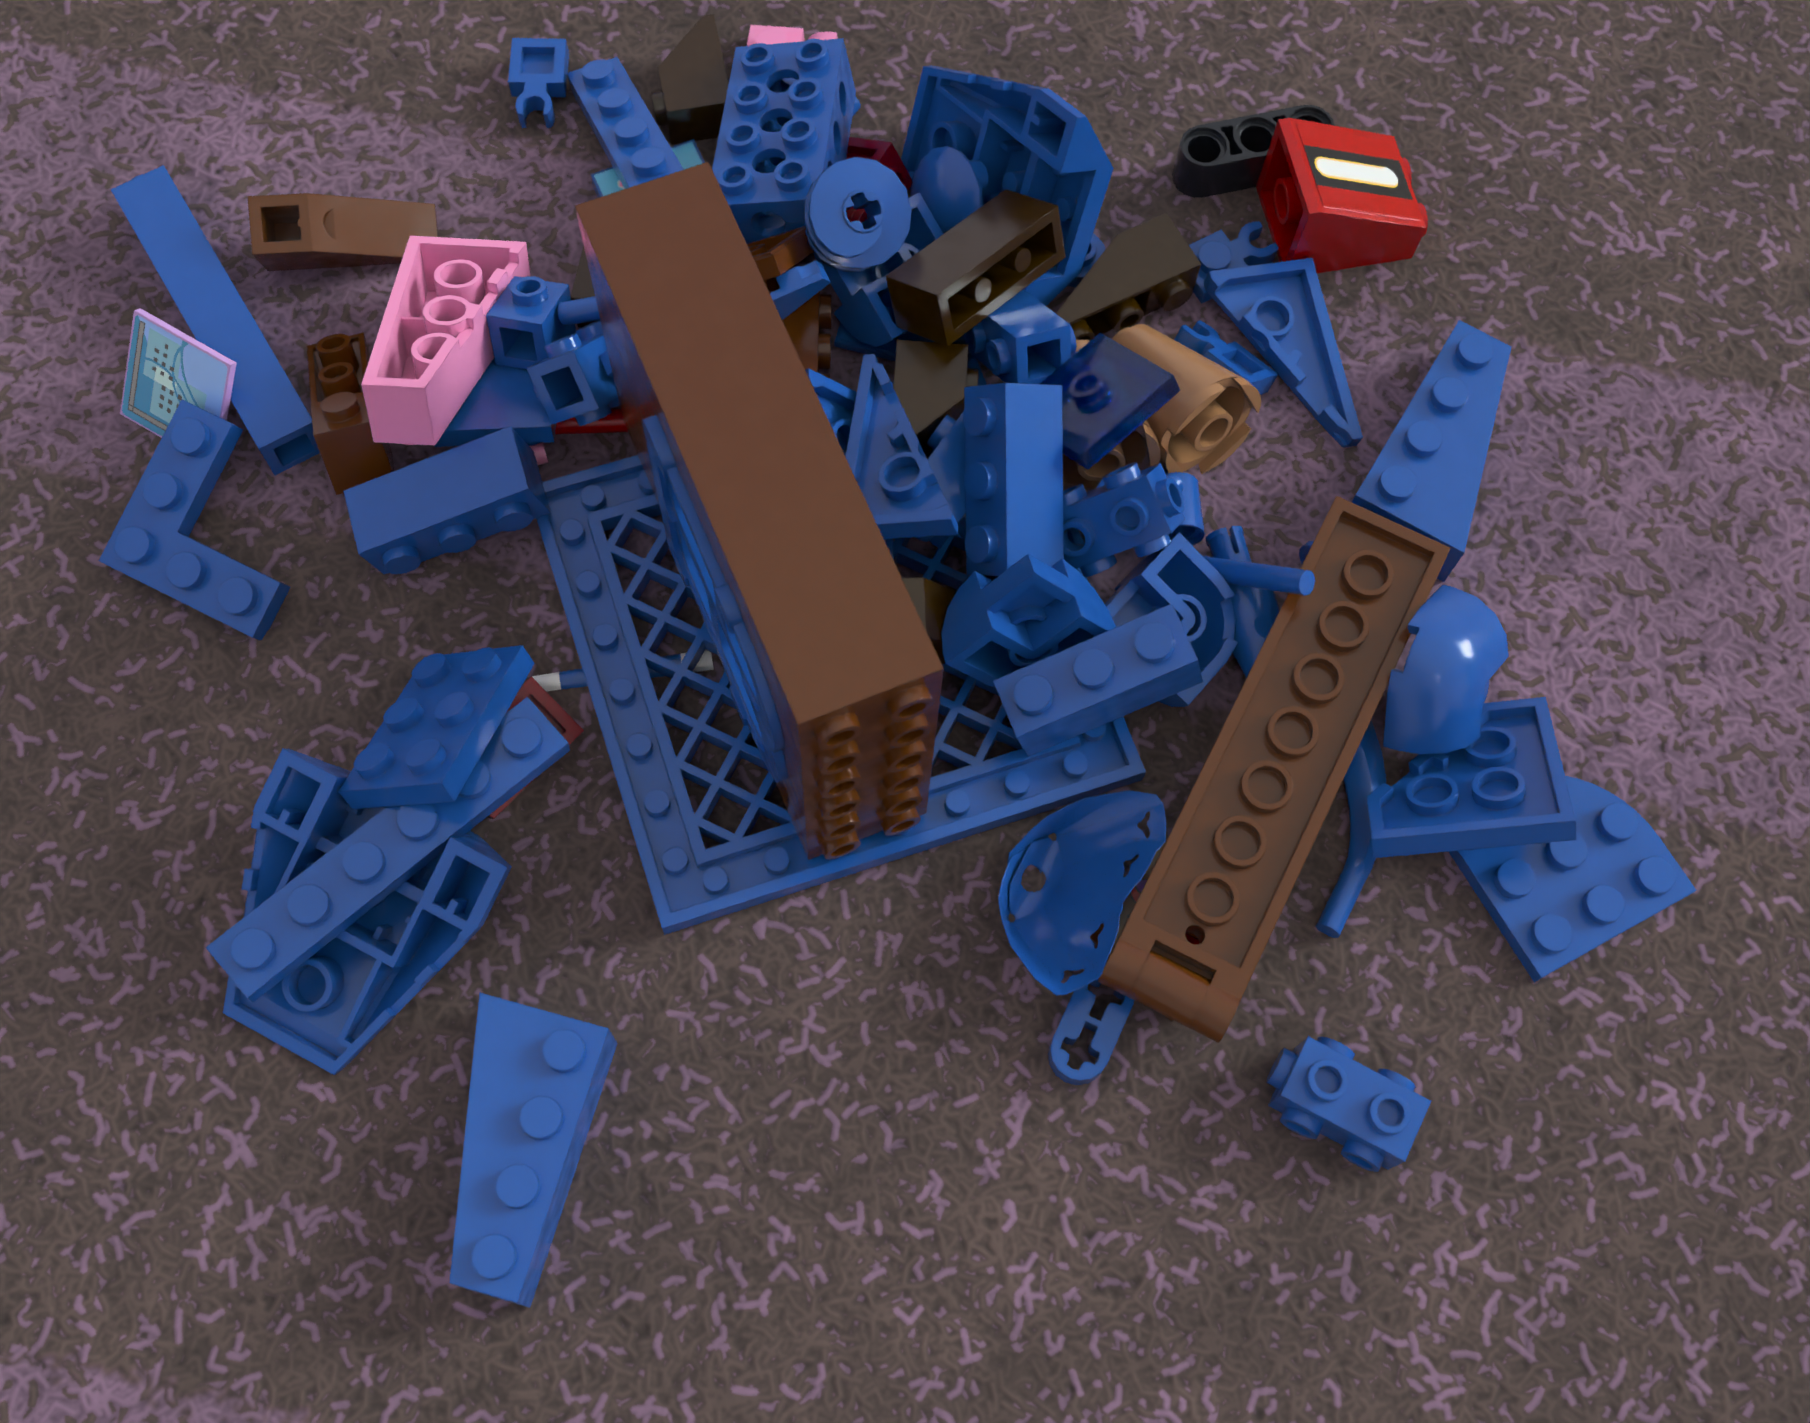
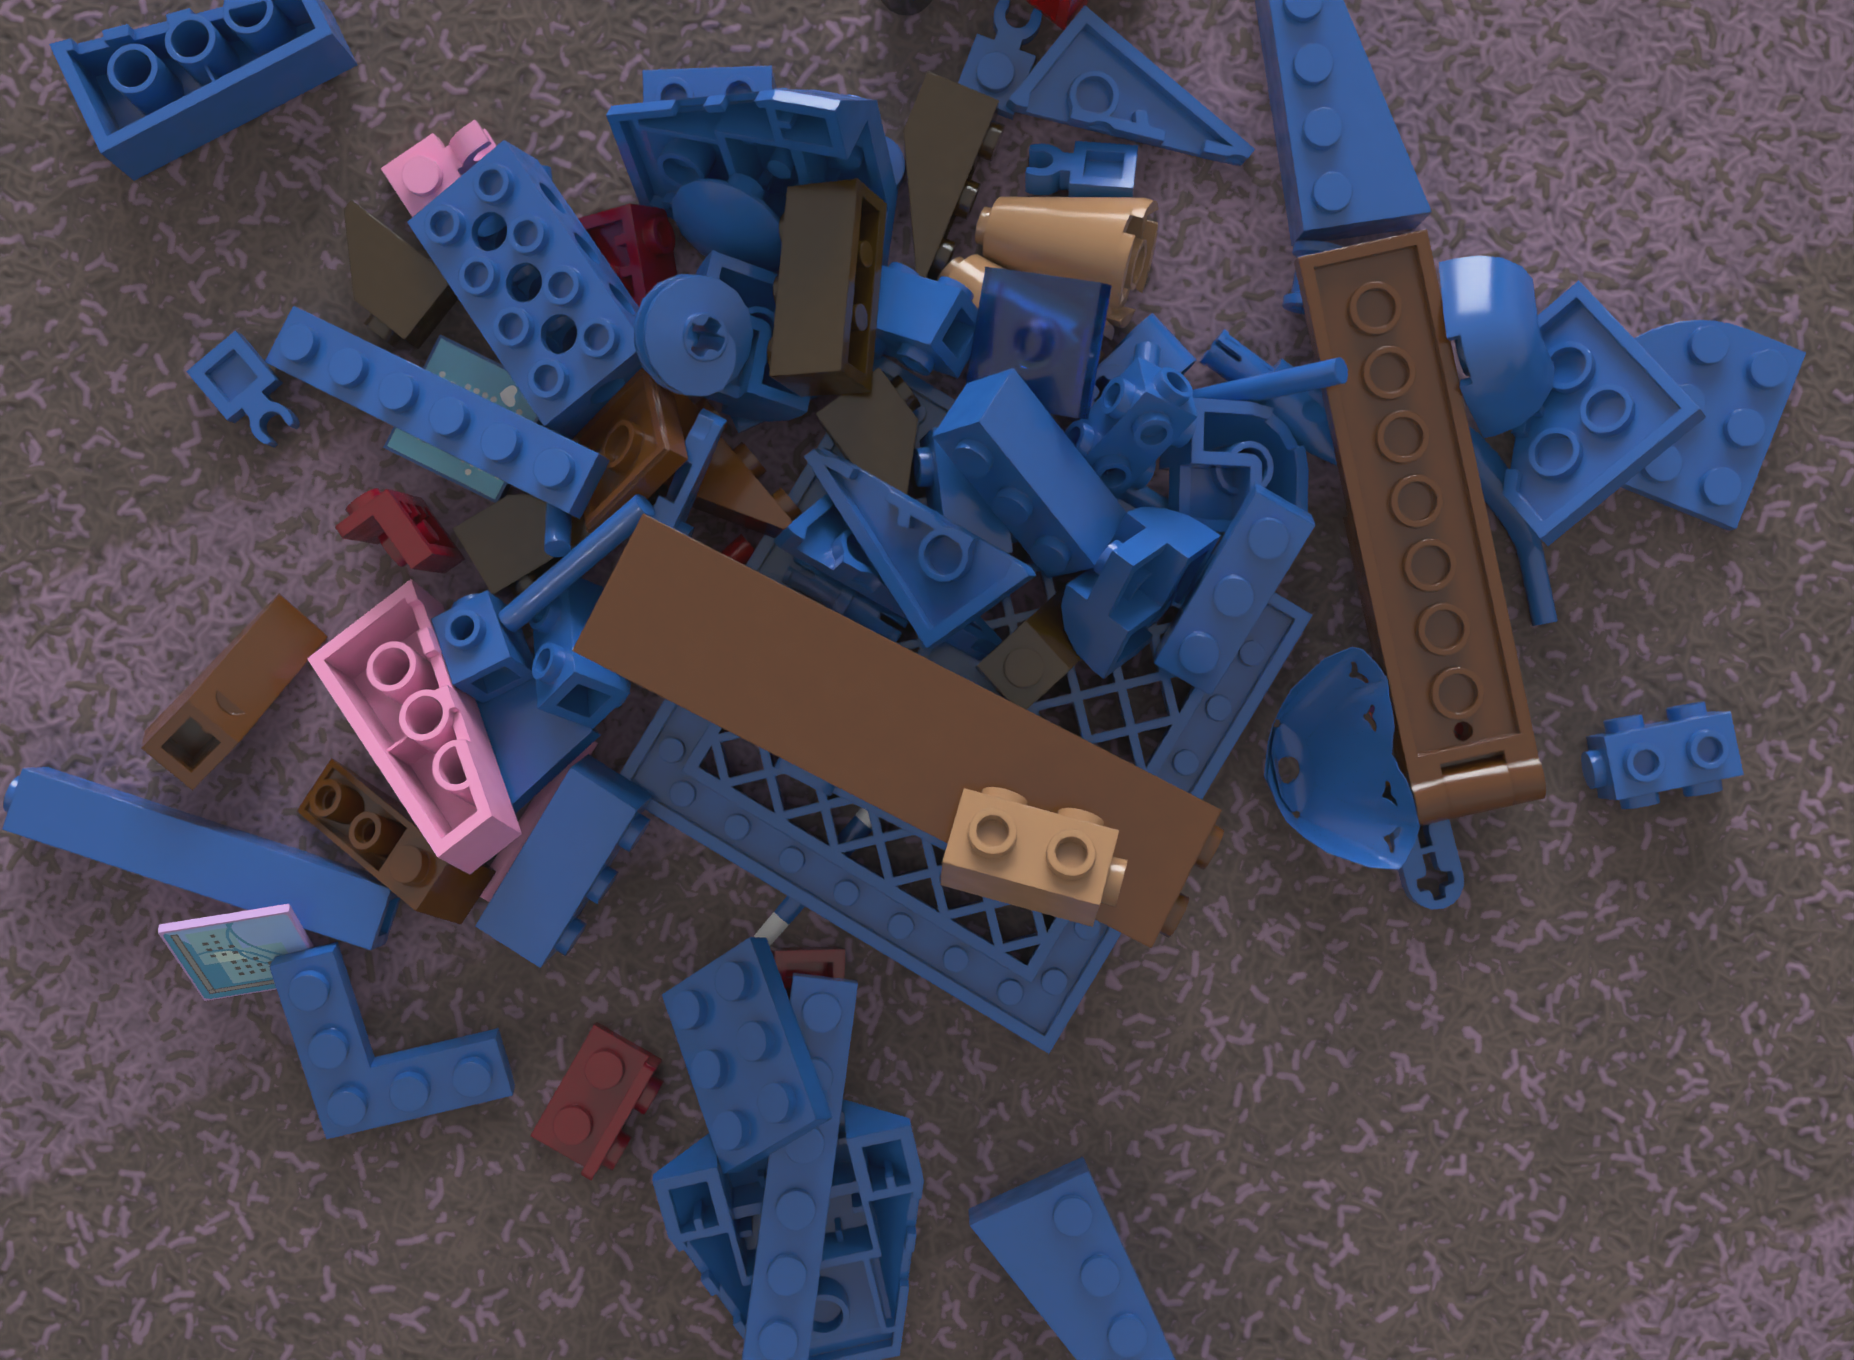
camera: 35 degrees left, 20 degrees up
(306, 693) = (597, 1099): none -> dark red bracket
(549, 211) = (403, 528): none -> dark red bracket
(763, 558) = (1032, 856): none -> medium nougat brick

